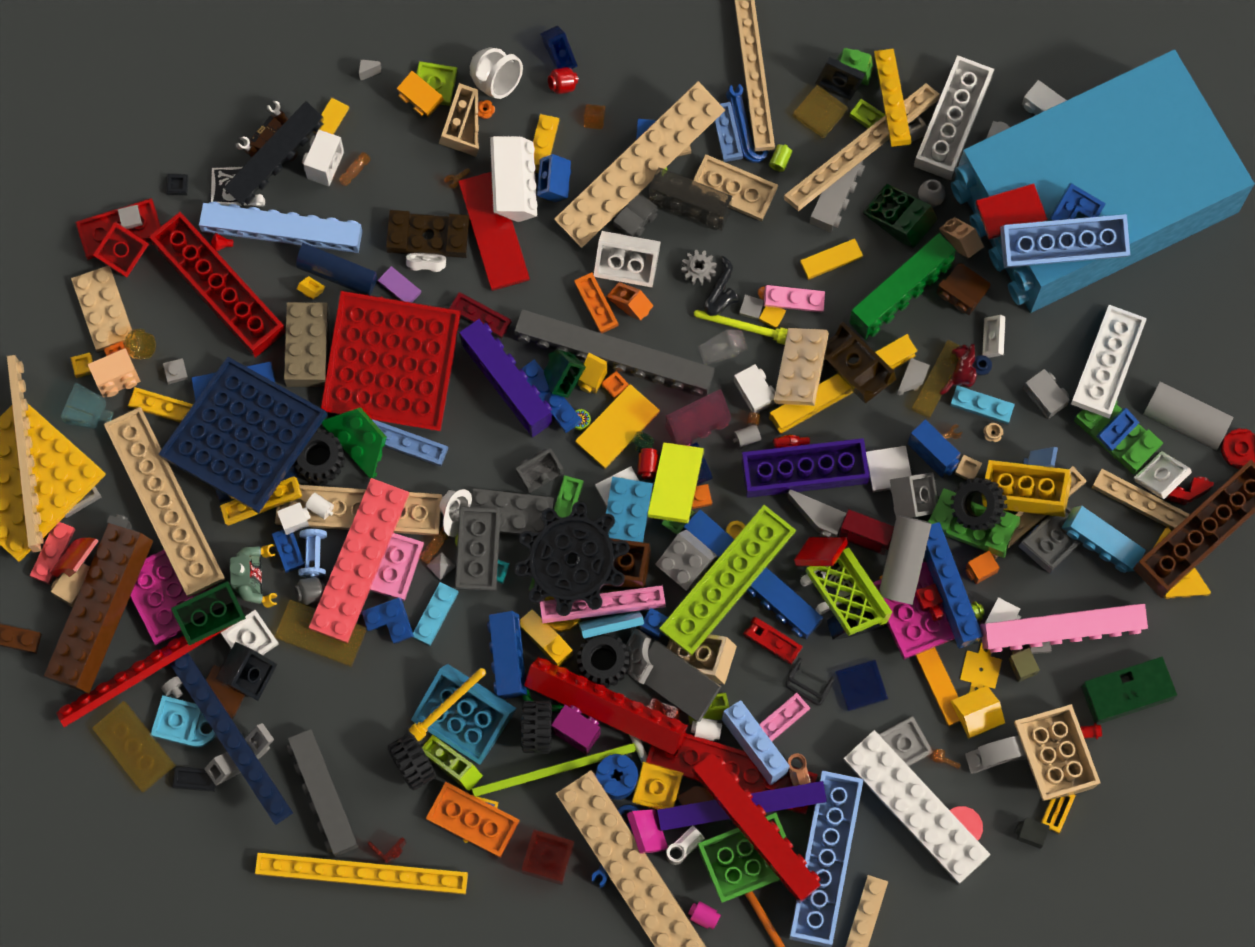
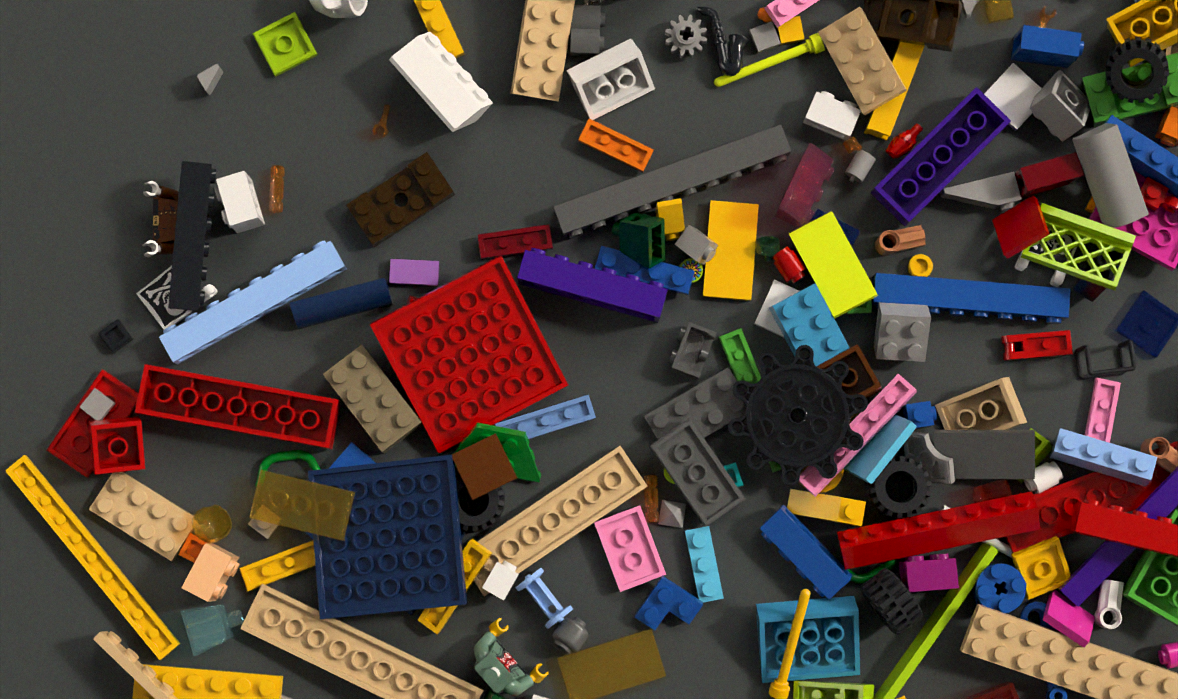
camera: 40 degrees left, 10 degrees up
(48, 310) = (92, 557): none -> yellow plate
(80, 364) = (170, 585): yellow tile -> none
(206, 374) = (302, 505): none -> clear yellow tile
(219, 242) = (205, 362): red rock -> none
(219, 338) = (286, 456): none -> green animal
(288, 550) = (518, 612): blue plate -> none
(310, 287) = (331, 339): yellow plate -> none
(320, 506) = (516, 548): white piece -> none
(333, 115) = (212, 152): yellow tile -> none
(341, 436) = (484, 466): none -> reddish brown tile
(359, 560) = (595, 571): coral plate -> none
(420, 94) = (282, 67): light orange brick -> none
(426, 261) = (421, 228): white plate -> none
(450, 508) = (640, 453): white piece -> none
(462, 122) = (345, 63): tan wedge -> none
(485, 114) = (355, 39): orange plate -> none
(493, 234) = (463, 152): red tile -> none
(554, 178) = (479, 52): blue brick -> none
(596, 403) = (697, 245): none -> light grey brick
(614, 384) = (696, 211): orange tile -> none
(630, 300) = (646, 118): orange slope -> none
(695, 795) = (1082, 549): reddish brown slope -> none
(702, 497) = (865, 255): orange plate -> none
(723, 346) = (769, 97): clear slope -> none
(727, 580) = (958, 322): lime plate -> none
(737, 503) = (902, 240): none -> nougat piece
(968, 468) = (1091, 39): tan plate -> none

